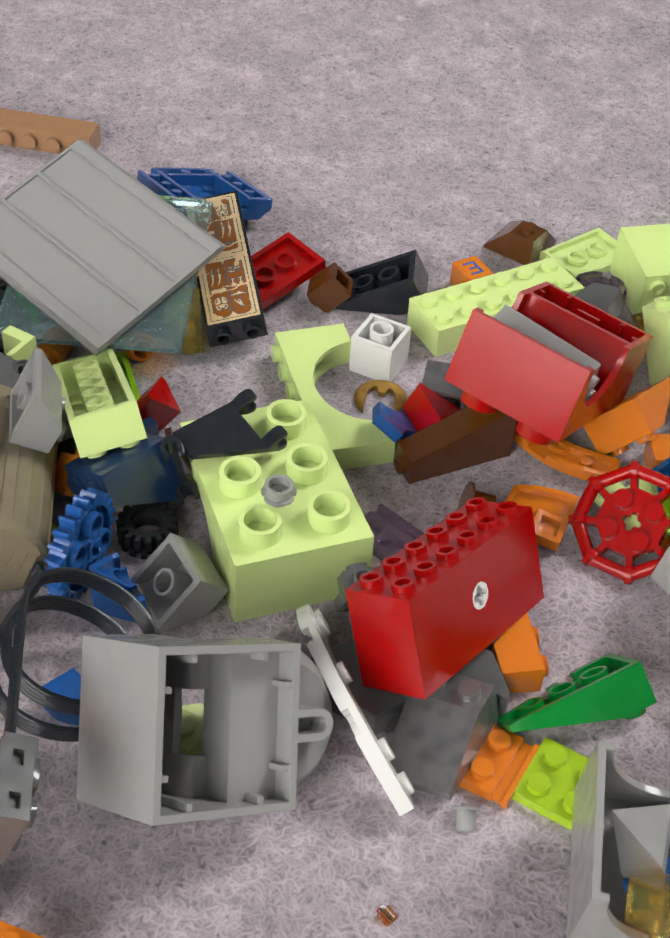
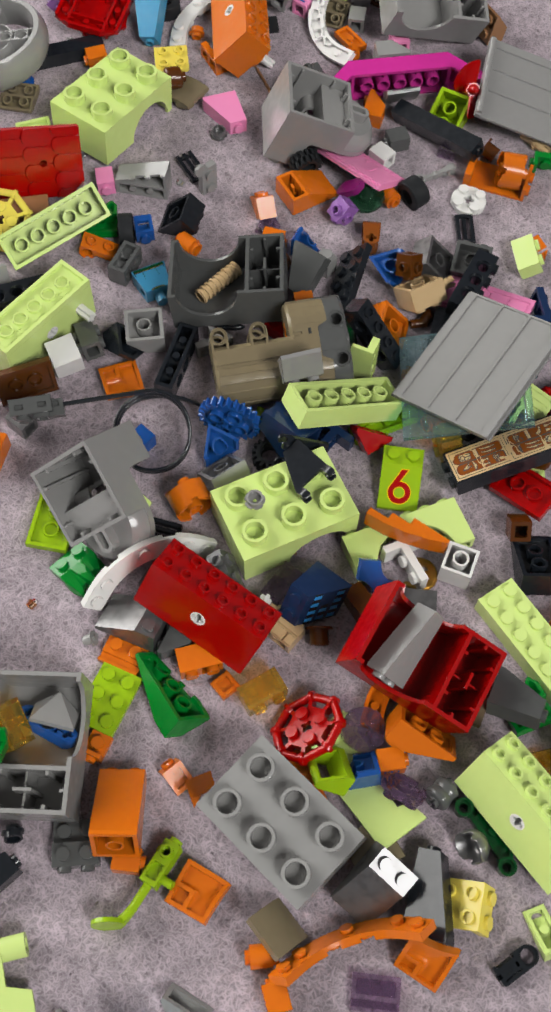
camera: 85 degrees right, 20 degrees up
(215, 378) = (400, 478): none -> lime slope
(216, 863) = (45, 531): none -> lime plate
(217, 616) = (189, 498): none -> orange brick
(329, 821) = (77, 568): none -> green plate
(333, 371) = (411, 533): none -> orange slope
(365, 394) = (407, 561): none -> white bracket
(419, 483) = (314, 596): none -> dark blue slope
(549, 509) = (319, 673): orange plate -> none
(554, 631) = (224, 685): none -> orange tile
(572, 577) = (262, 692): none -> clear yellow brick
(616, 456) = (375, 734): none -> plate

